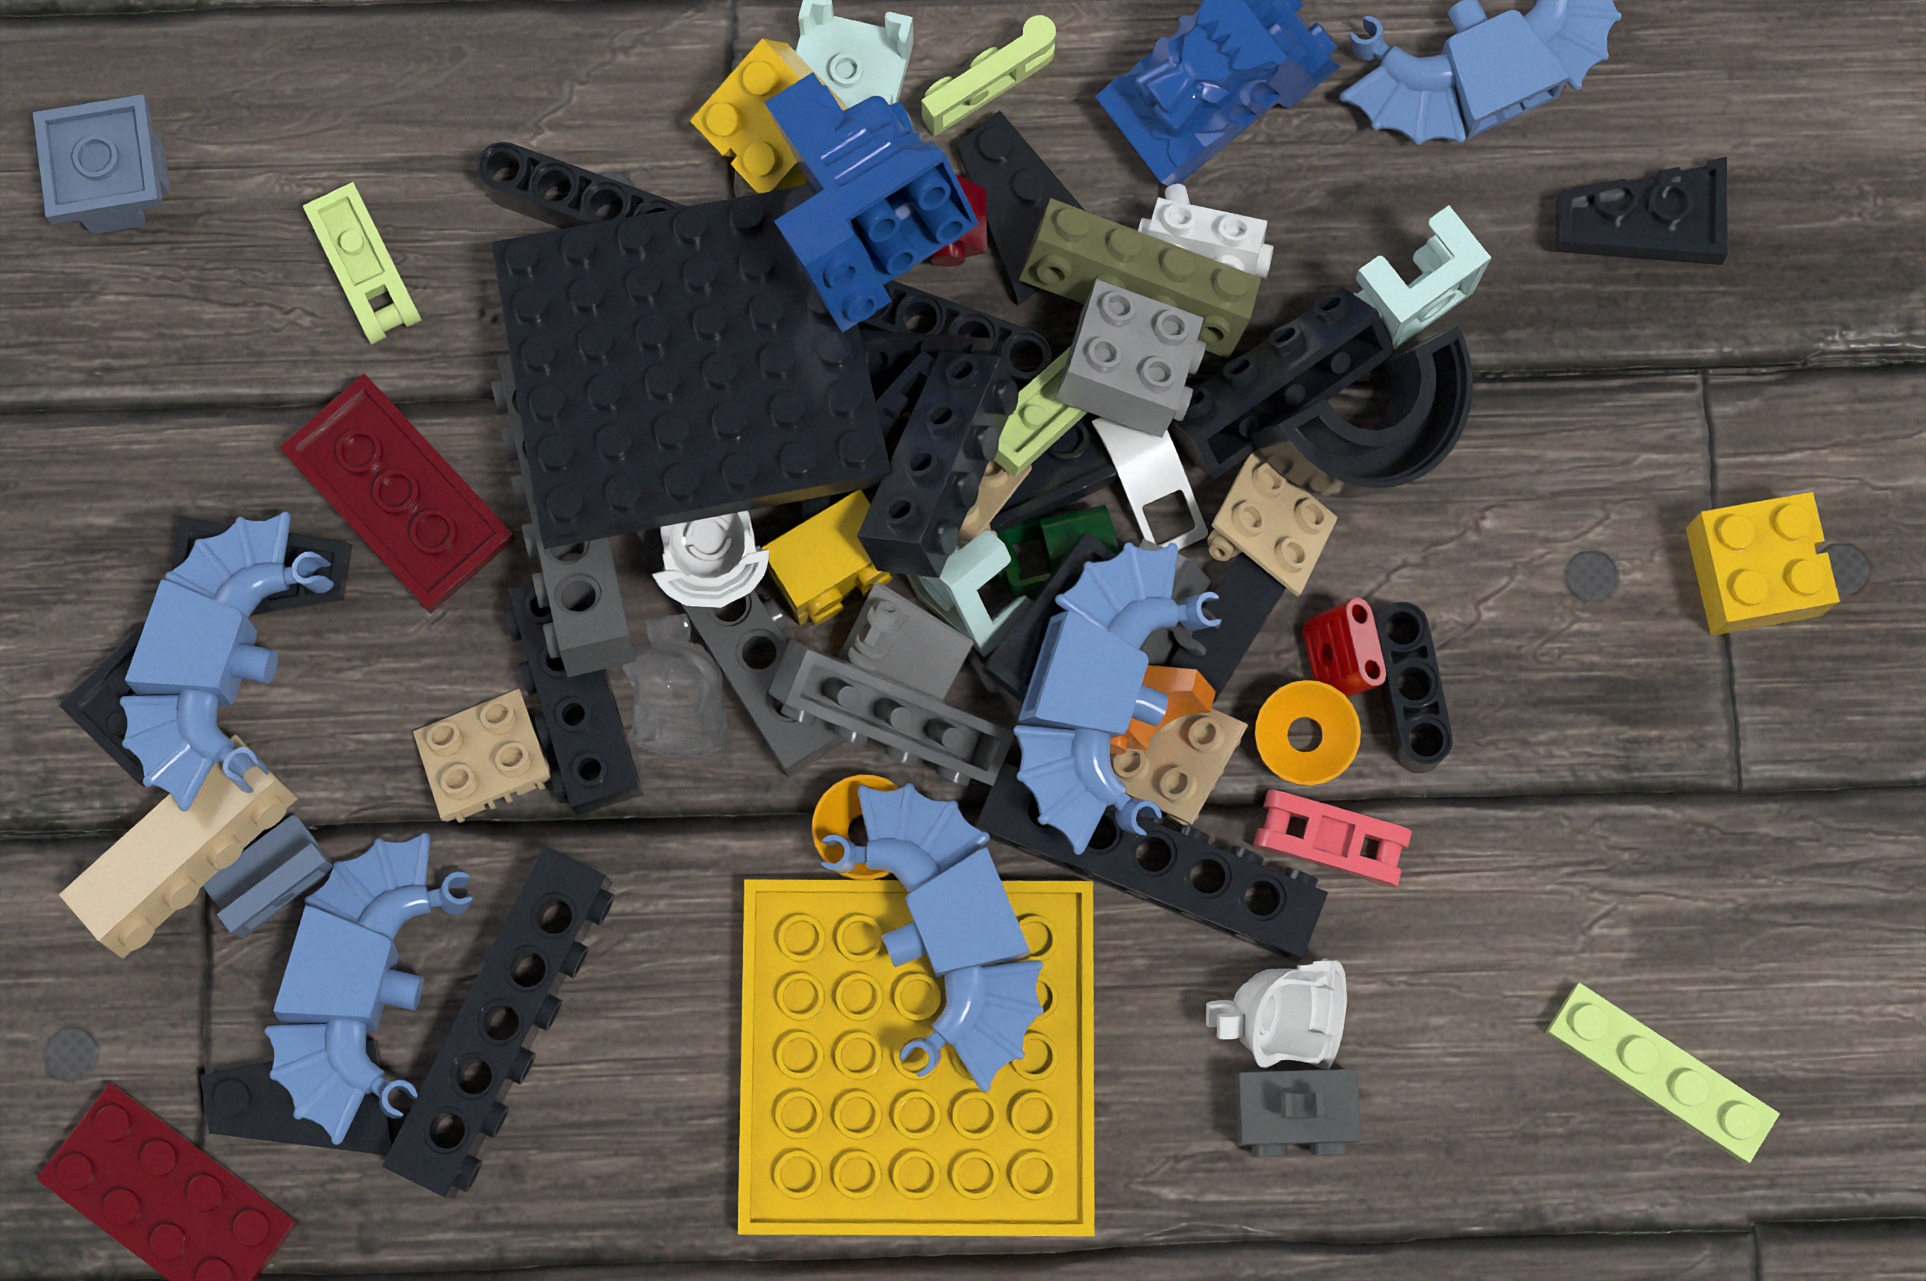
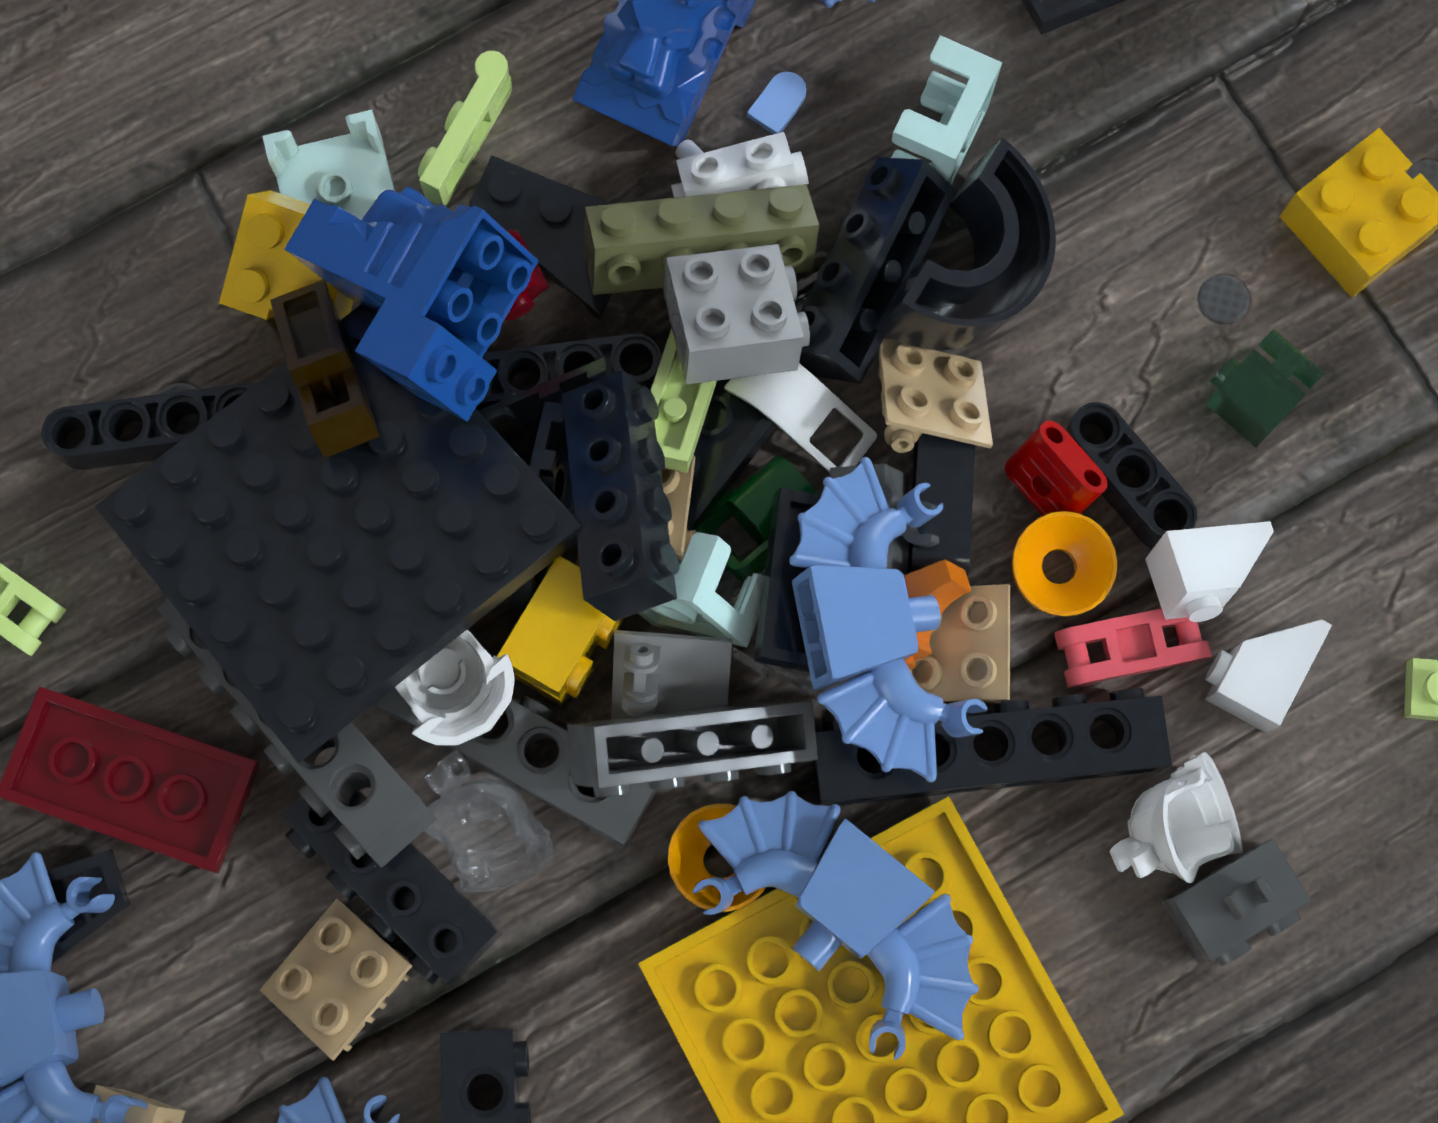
camera: 30 degrees left, 0 degrees up
(744, 223) = (323, 369): none -> dark brown slope
(1283, 192) = (778, 102): none -> light blue piece
(1431, 801) = (1204, 567): none -> white slope
(1435, 923) = (1265, 674): none -> white slope
(1570, 676) = (1259, 394): none -> clear green brick

